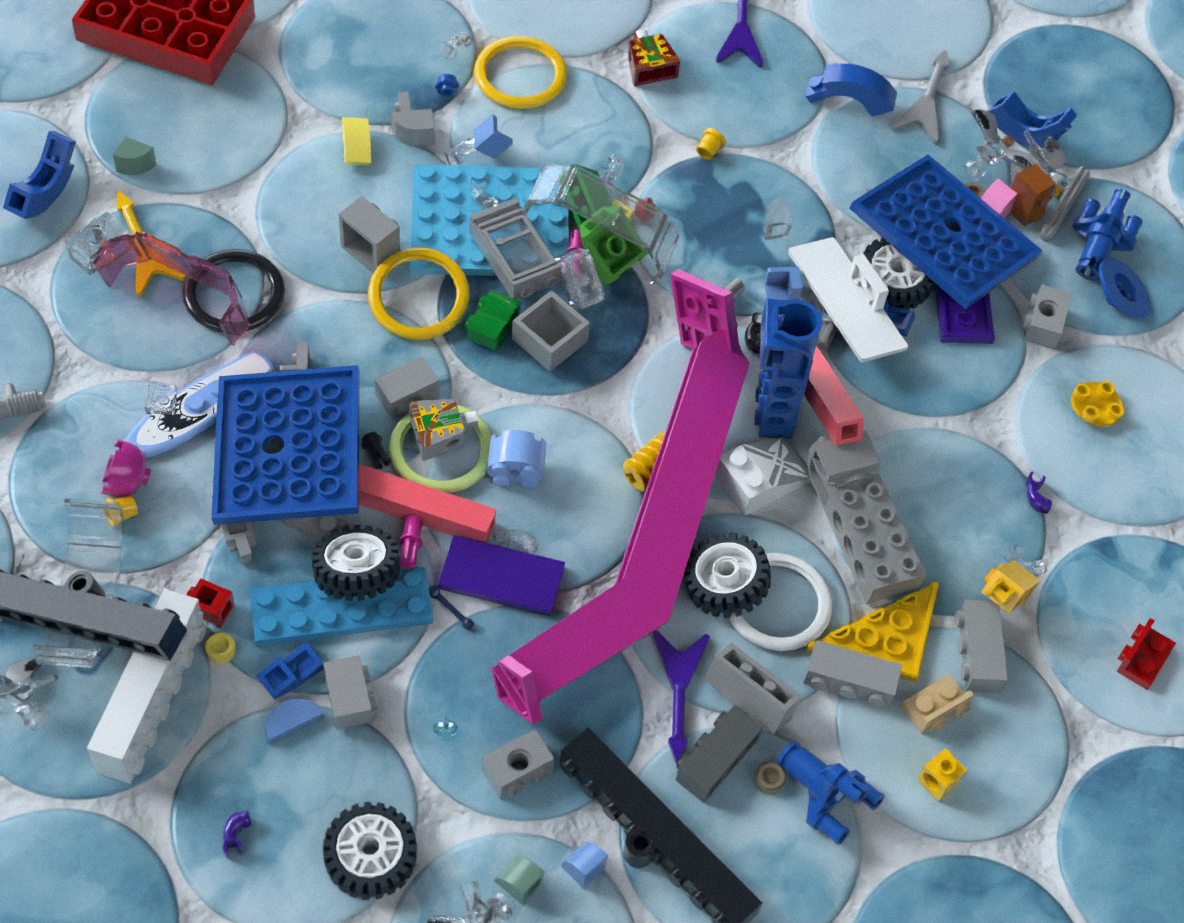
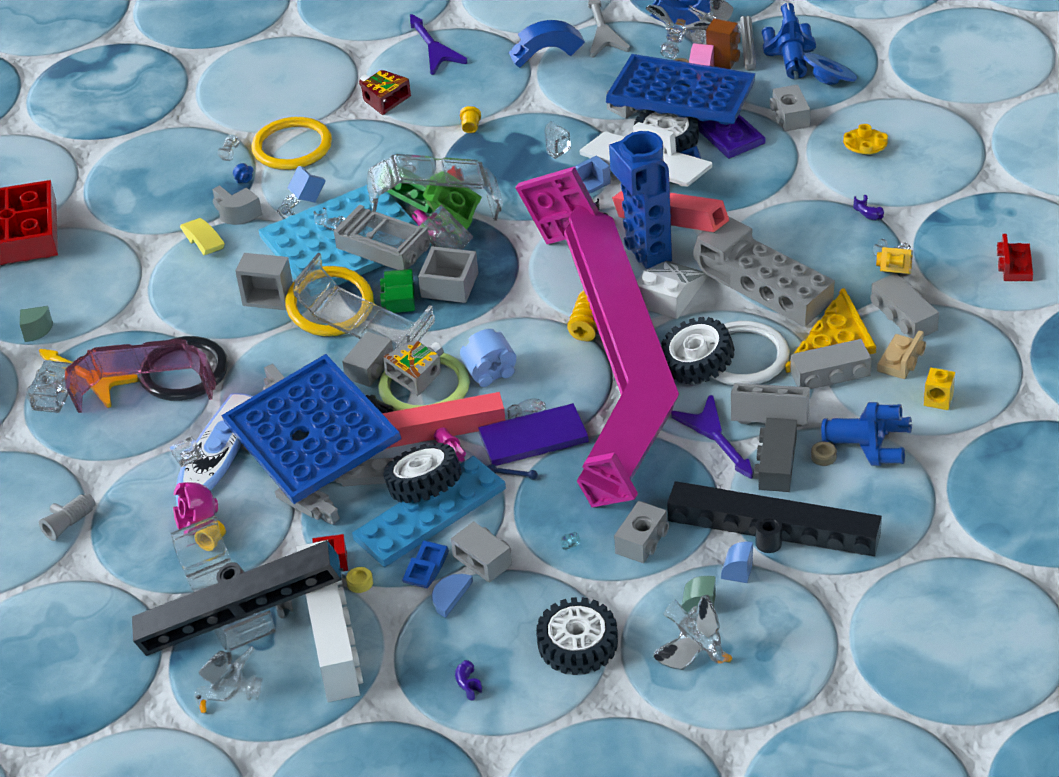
camera: 20 degrees left, 15 degrees down
(431, 326) = (352, 313): none -> clear windscreen

